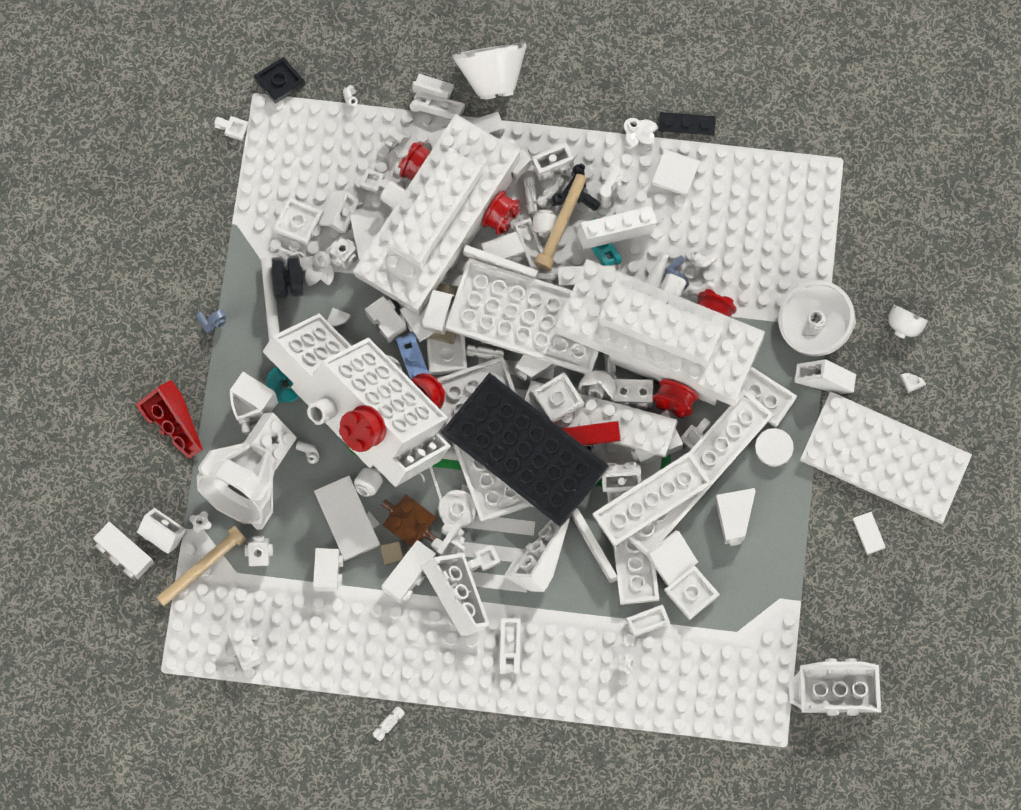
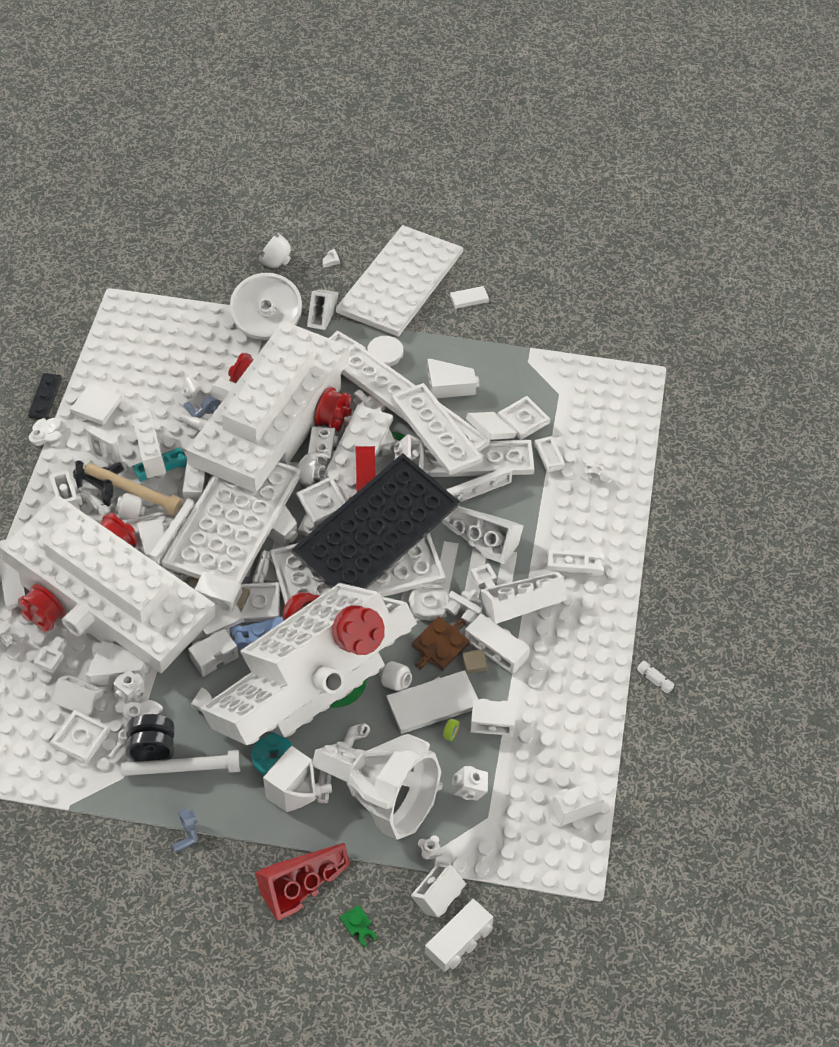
camera: 90 degrees left, 20 degrees down
(134, 468) = (357, 923): none -> green plate
(234, 537) = (451, 810): tan piece -> none
(315, 534) = (451, 729): none -> lime tile
(836, 687) = (617, 323): white slope -> none

